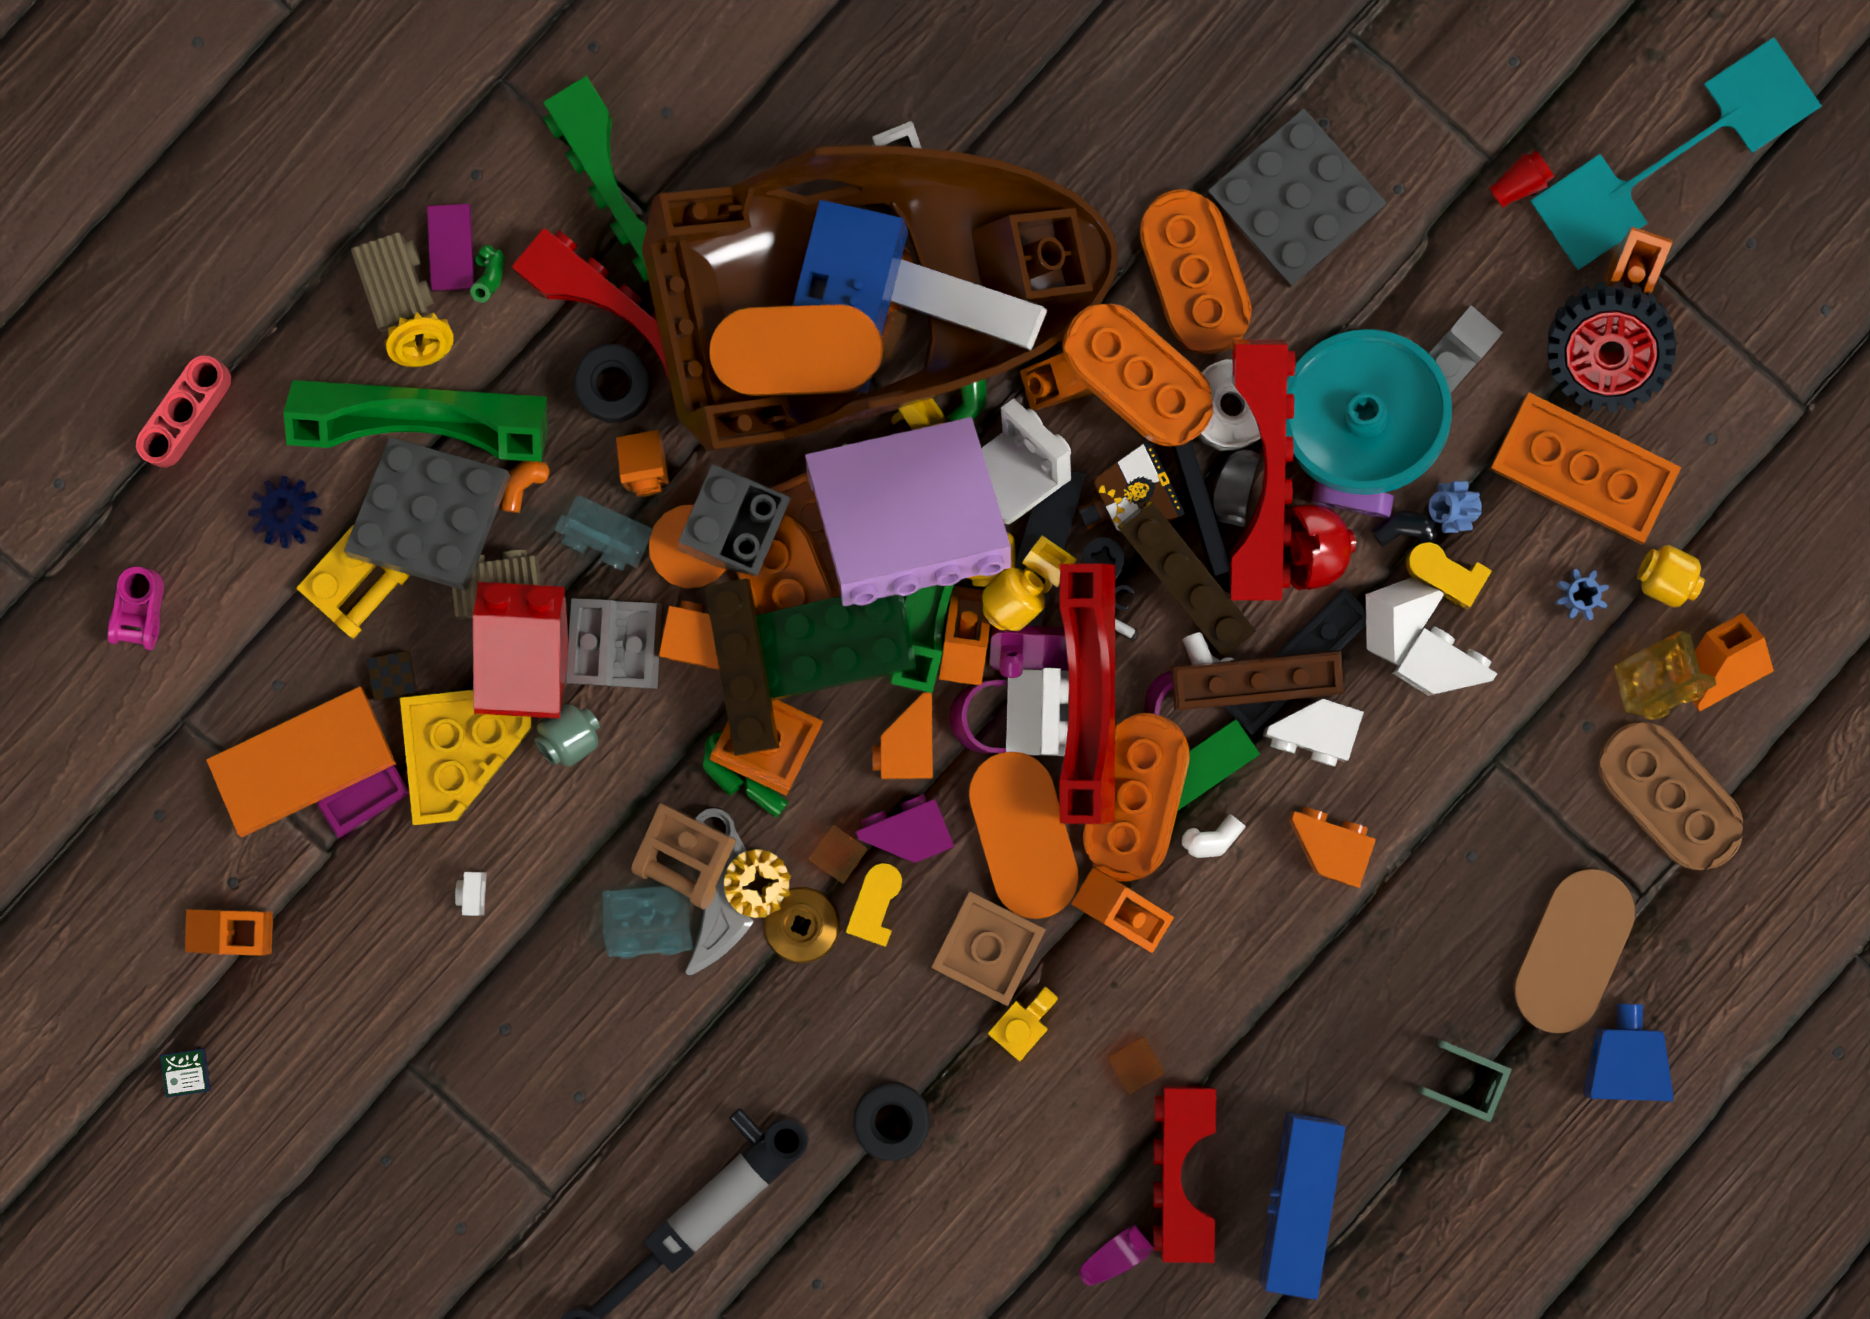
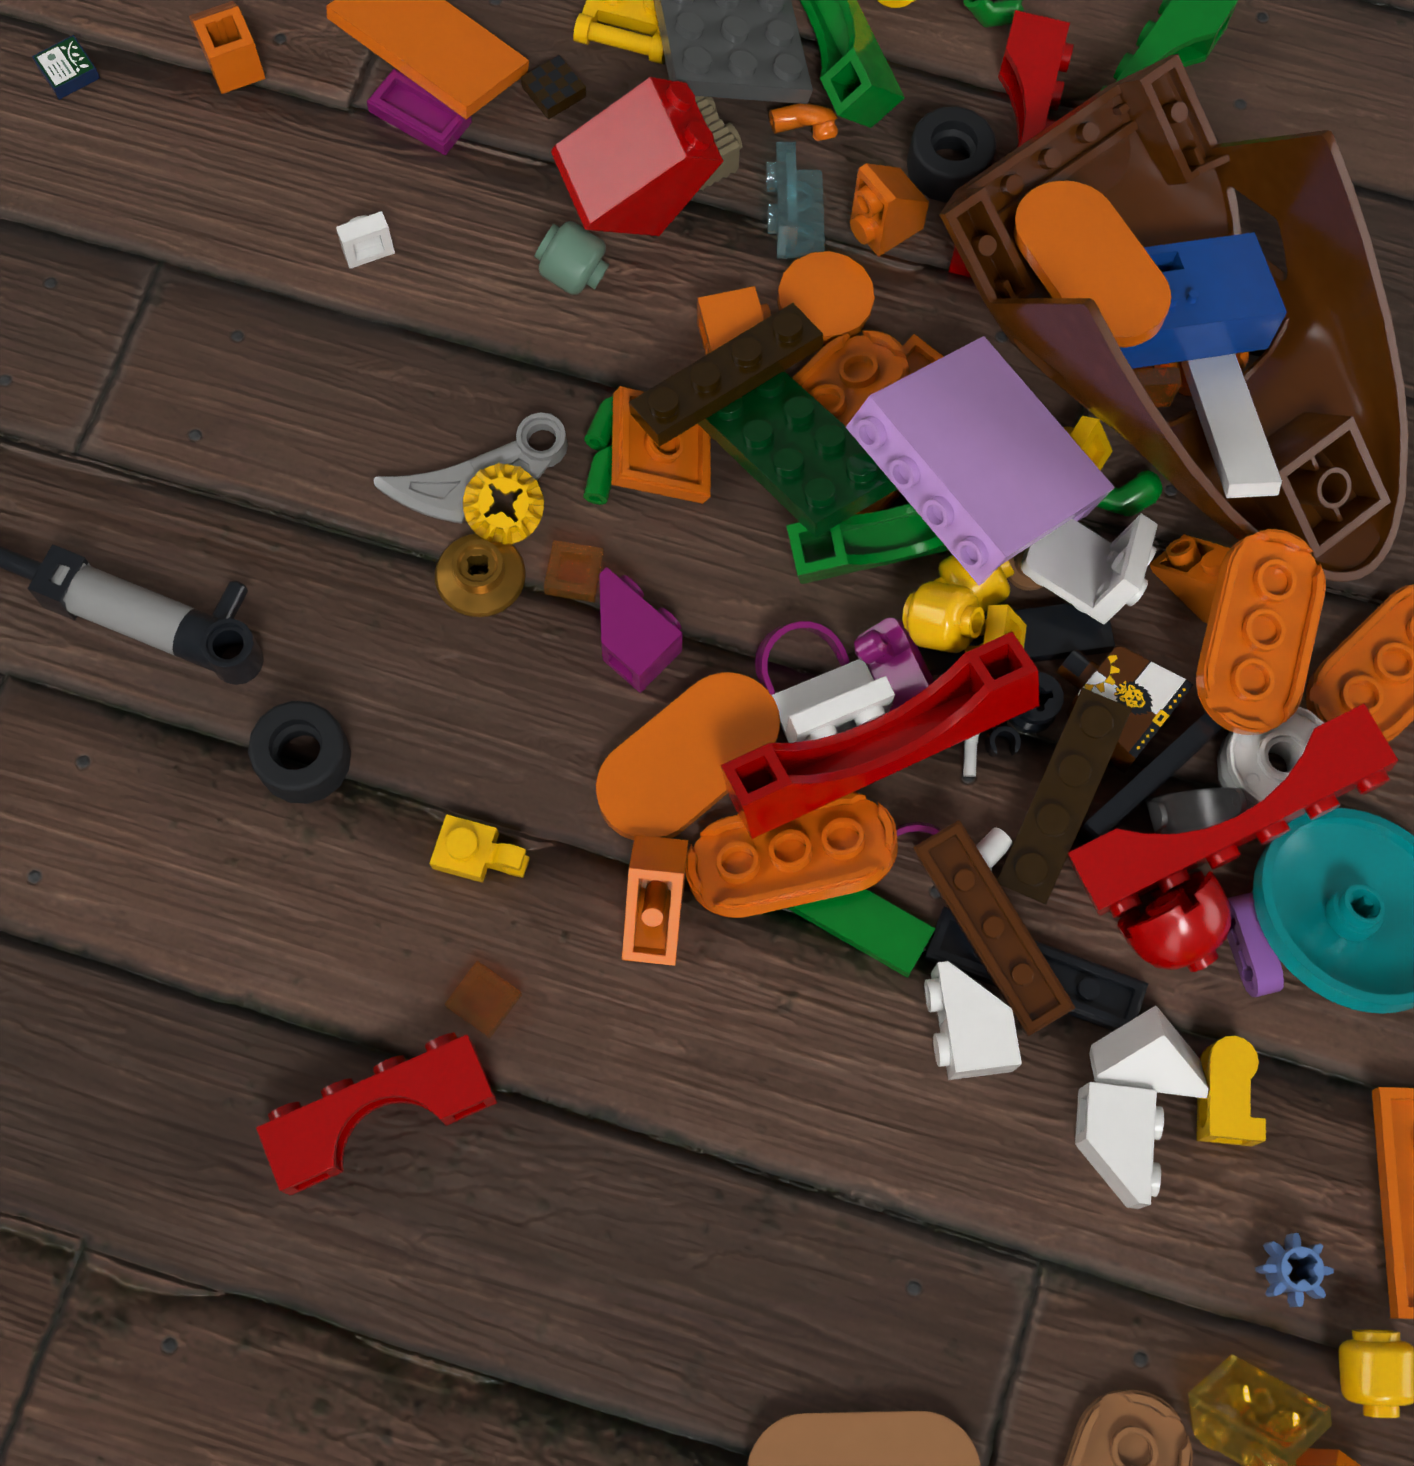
camera: 60 degrees right, 15 degrees down
(453, 752) = (501, 167): yellow plate -> none
(614, 643) = (685, 263): light grey slope -> none
(646, 922) = (411, 414): clear light blue bracket -> none
(689, 843) = (513, 417): medium nougat plate -> none
(733, 522) = (873, 300): dark grey slope -> none
(878, 888) = (537, 629): yellow leg -> none
(907, 744) = (731, 588): orange slope -> none
(965, 638) = (867, 594): orange slope -> none
(988, 948) = (542, 772): medium nougat plate -> none
(1116, 1256) = (241, 1077): magenta helmet -> none
(1215, 842) = (781, 968): white arm -> none
(1301, 1205) = (391, 1265): blue brick -> none
(1331, 849) = (842, 1109): orange slope -> none
(1408, 523) = (1257, 1019): black arm -> none
(1455, 506) = (1311, 1065): medium blue gear -> none
(1493, 1091) = (639, 1451): sand green piece -> none

